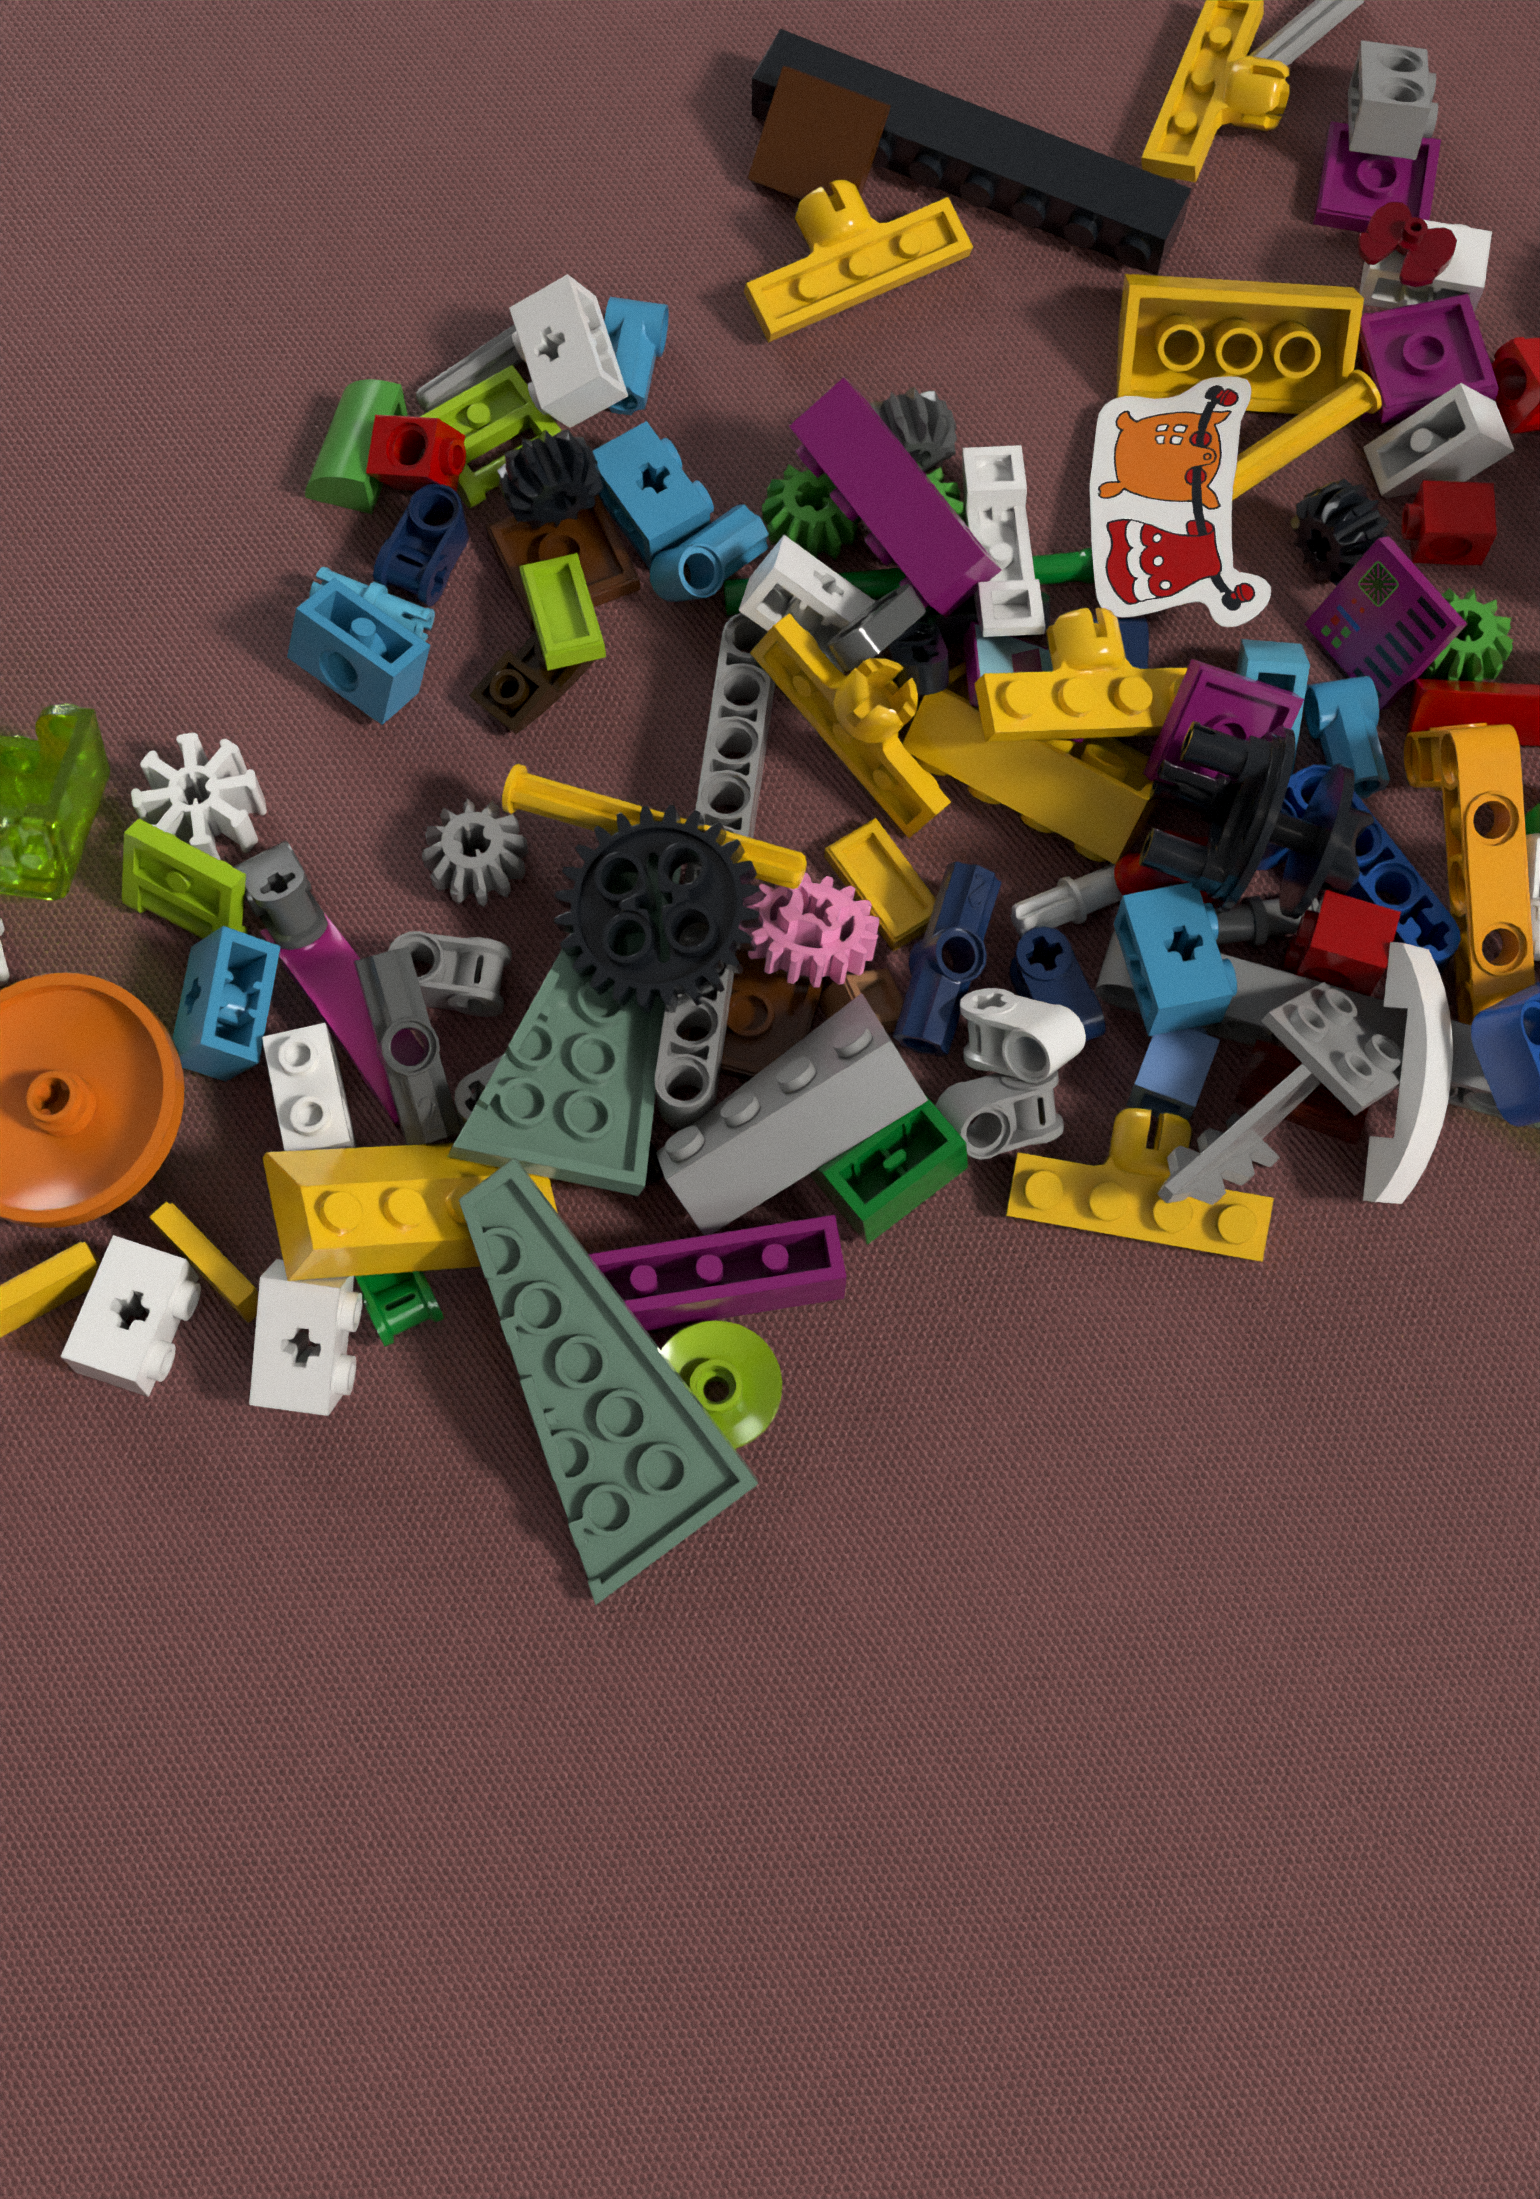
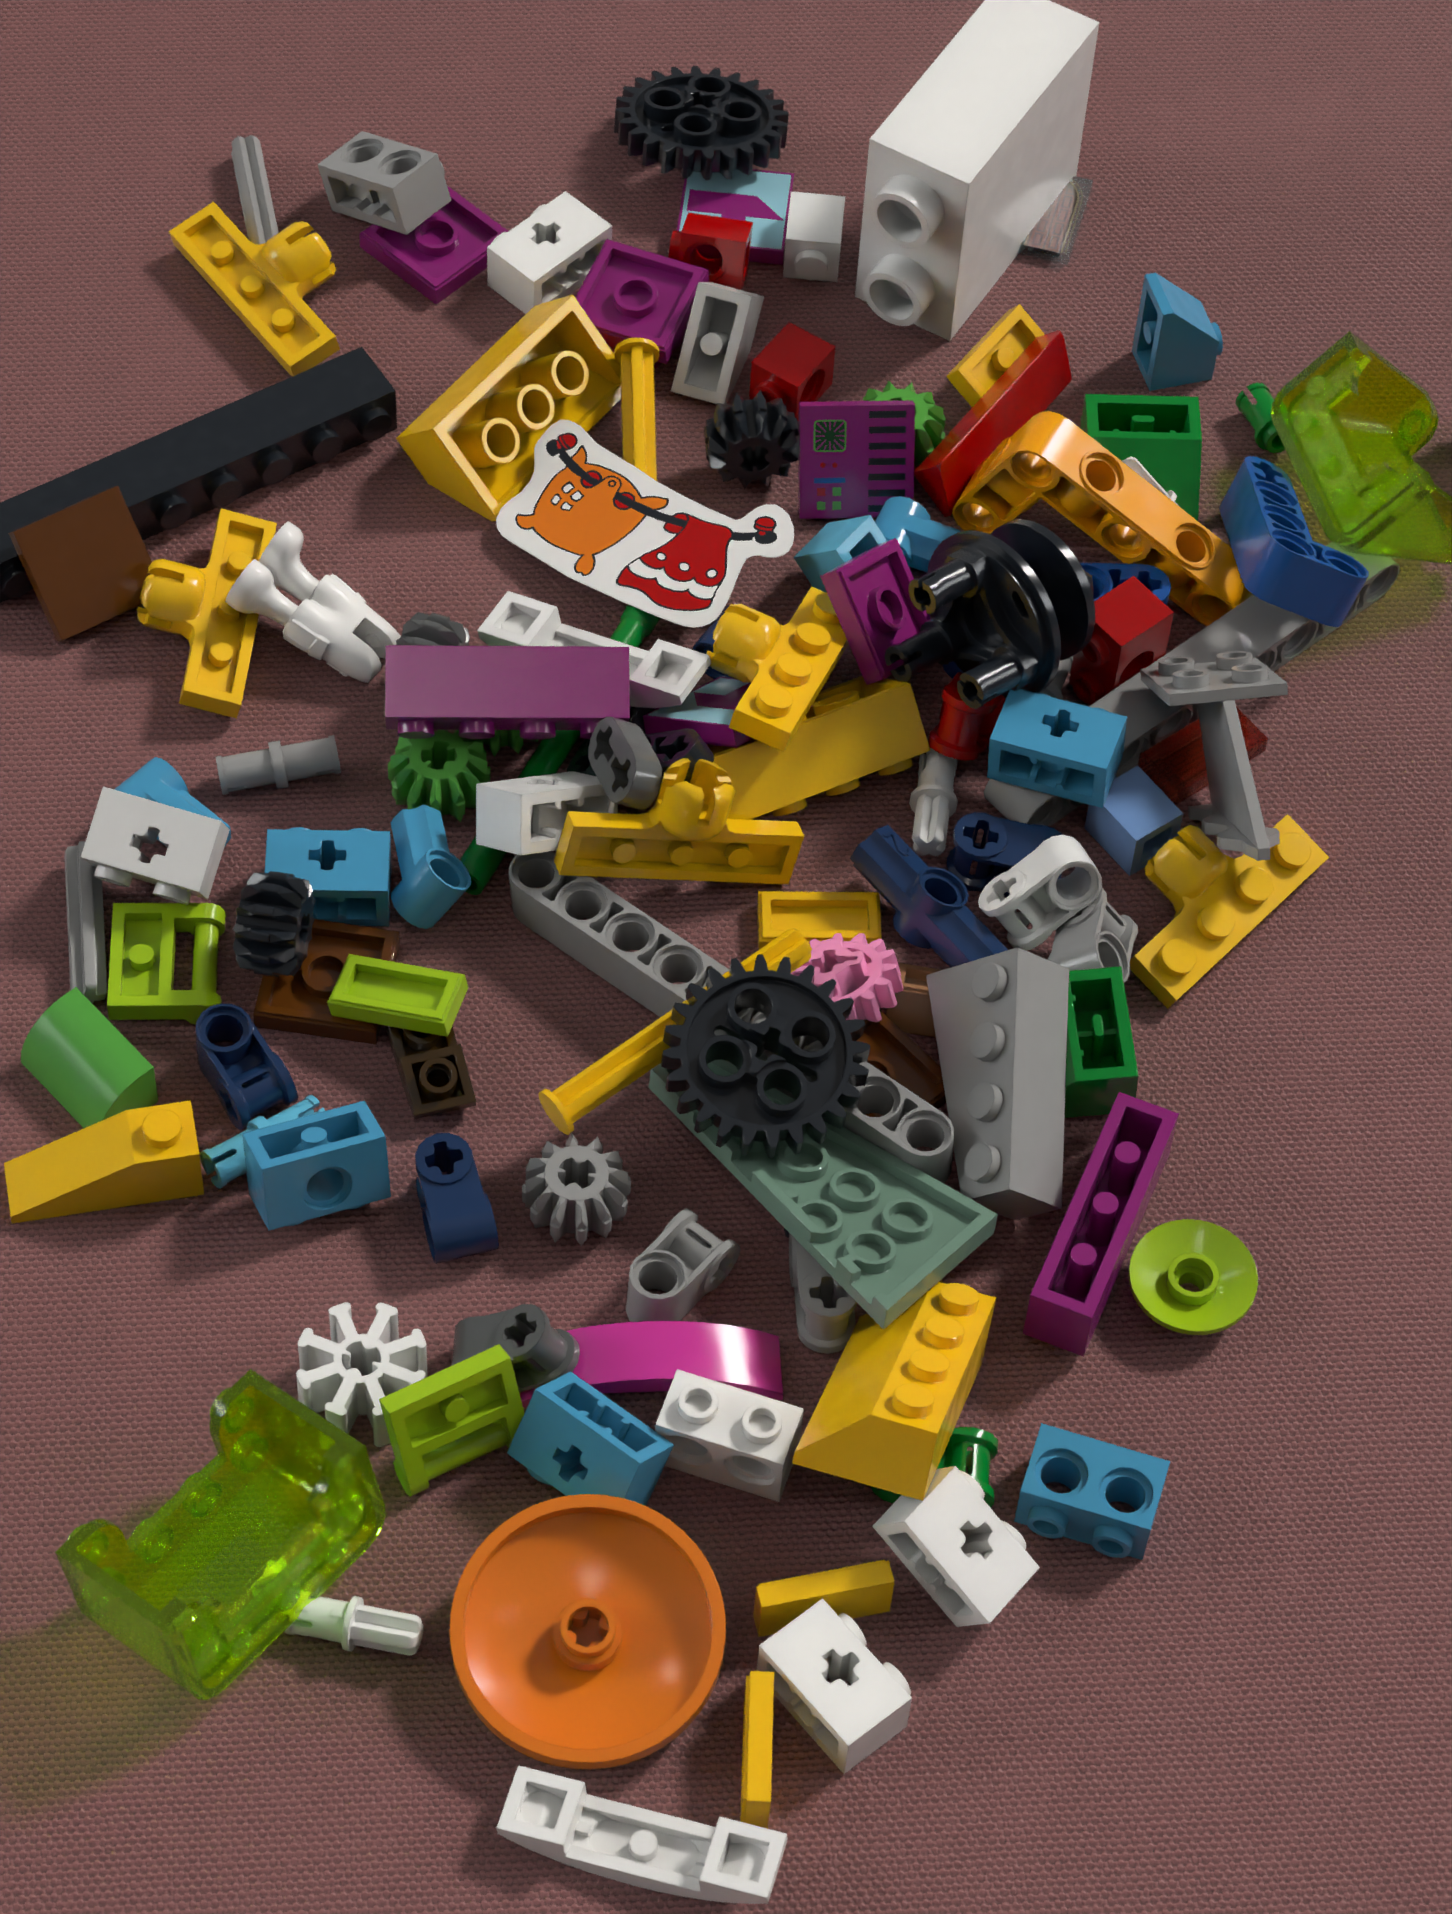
camera: 60 degrees left, 15 degrees down
(277, 516) = (109, 1165): none -> yellow slope
(398, 1004) = (742, 1322): dark grey piece -> none
(399, 441) = (154, 1040): red brick -> none
(400, 771) = (453, 1205): none -> dark blue piece
(453, 1416) = (1096, 1476): none -> dark azure brick
(613, 1415) = (1182, 1342): sand green wing -> none
(737, 396) = (278, 764): none -> light grey pin
(892, 336) = (331, 619): none -> white piece
(1425, 1078) = (1309, 713): white slope -> none
(1426, 250) = (519, 246): dark red piece -> none

